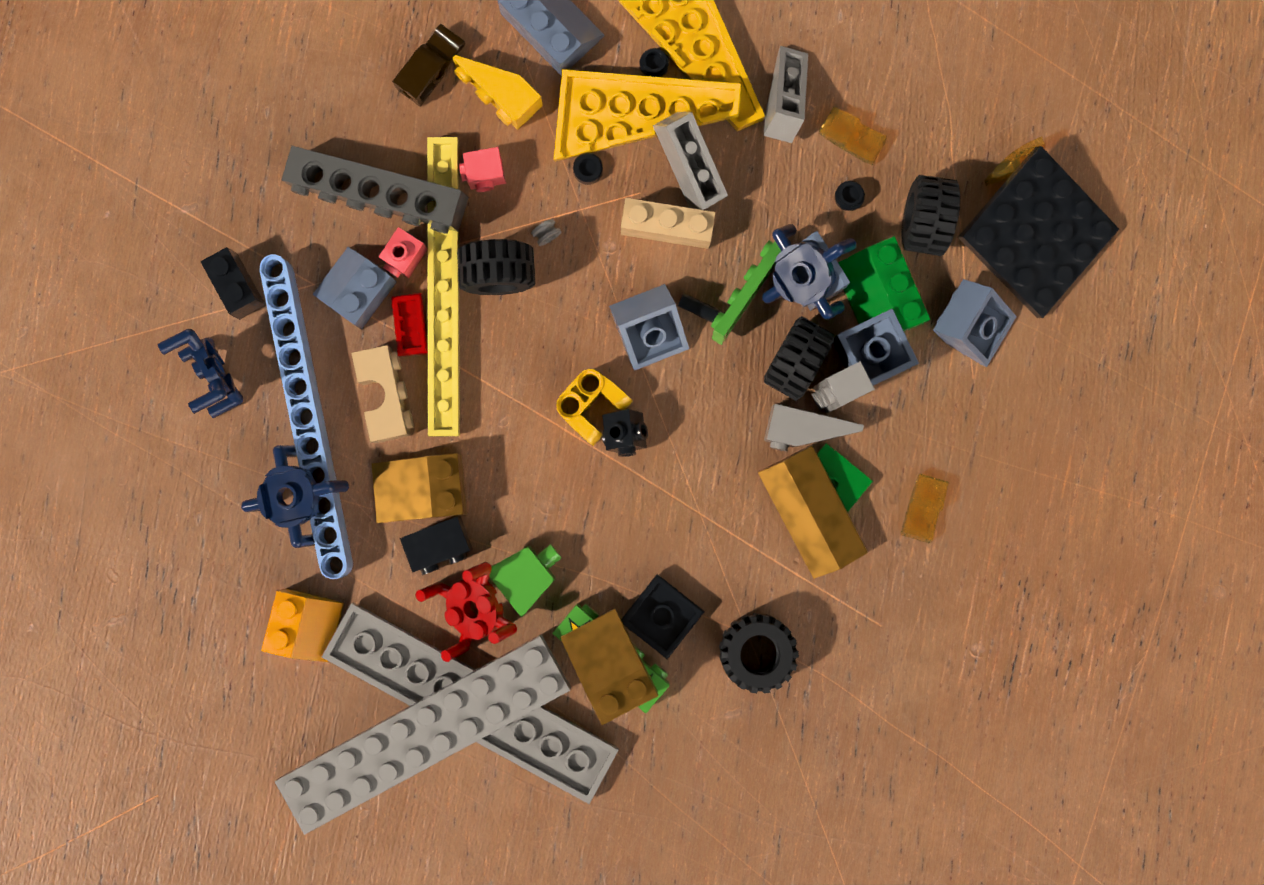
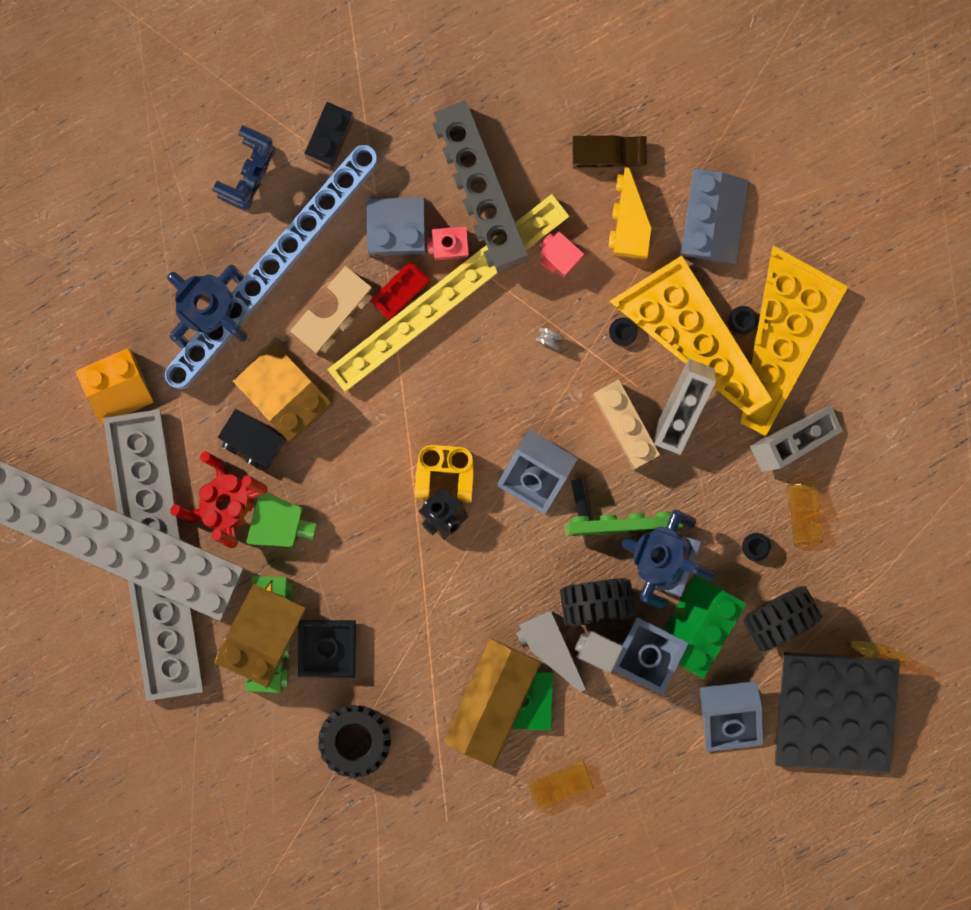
camera: 65 degrees right, 0 degrees up
(496, 267) = (491, 323): black tyre -> none

